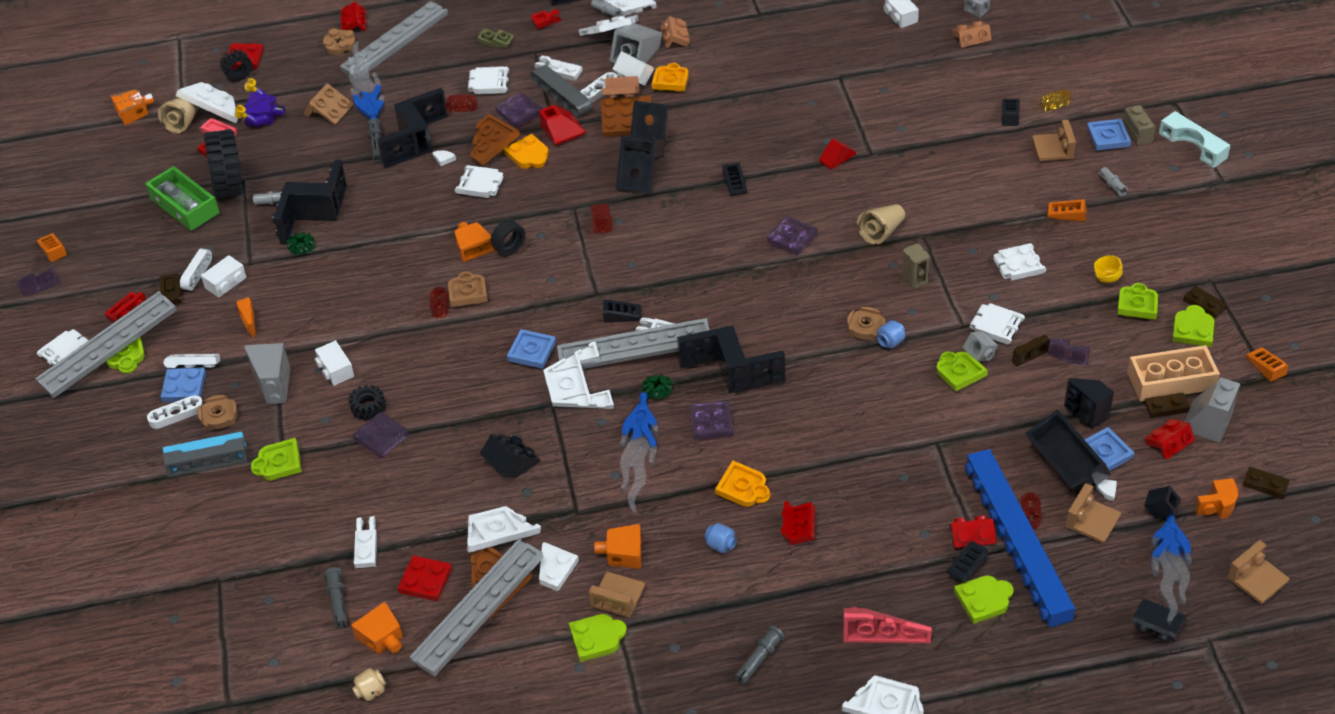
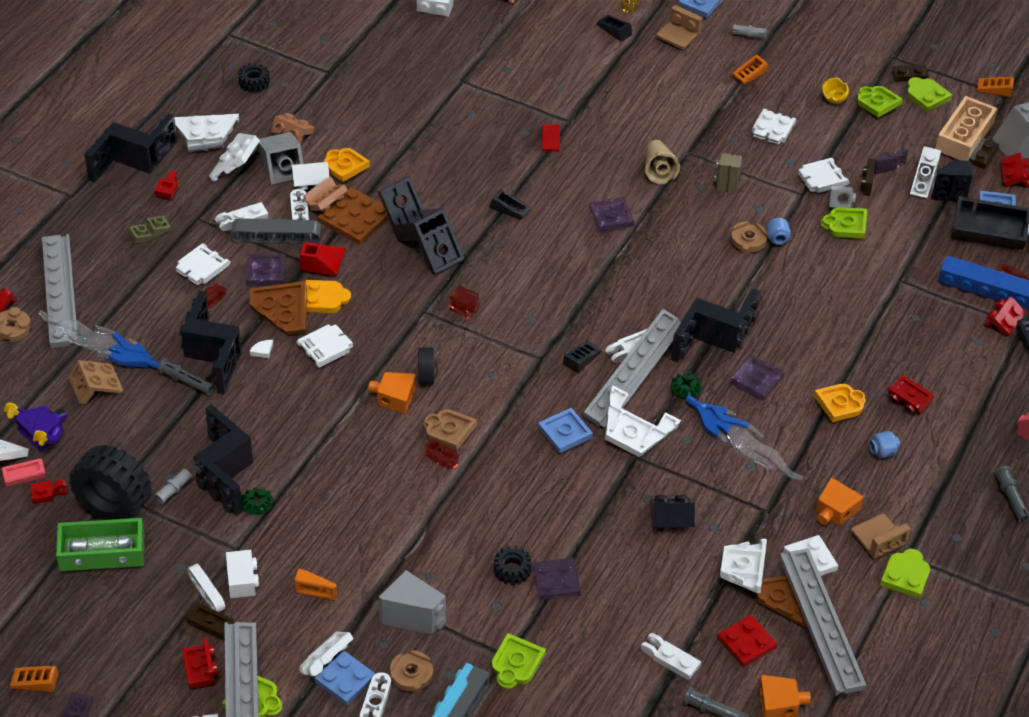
camera: 55 degrees left, 0 degrees up
(334, 363) = (442, 559): white brick -> none
(1093, 370) = (925, 172): none -> white slope

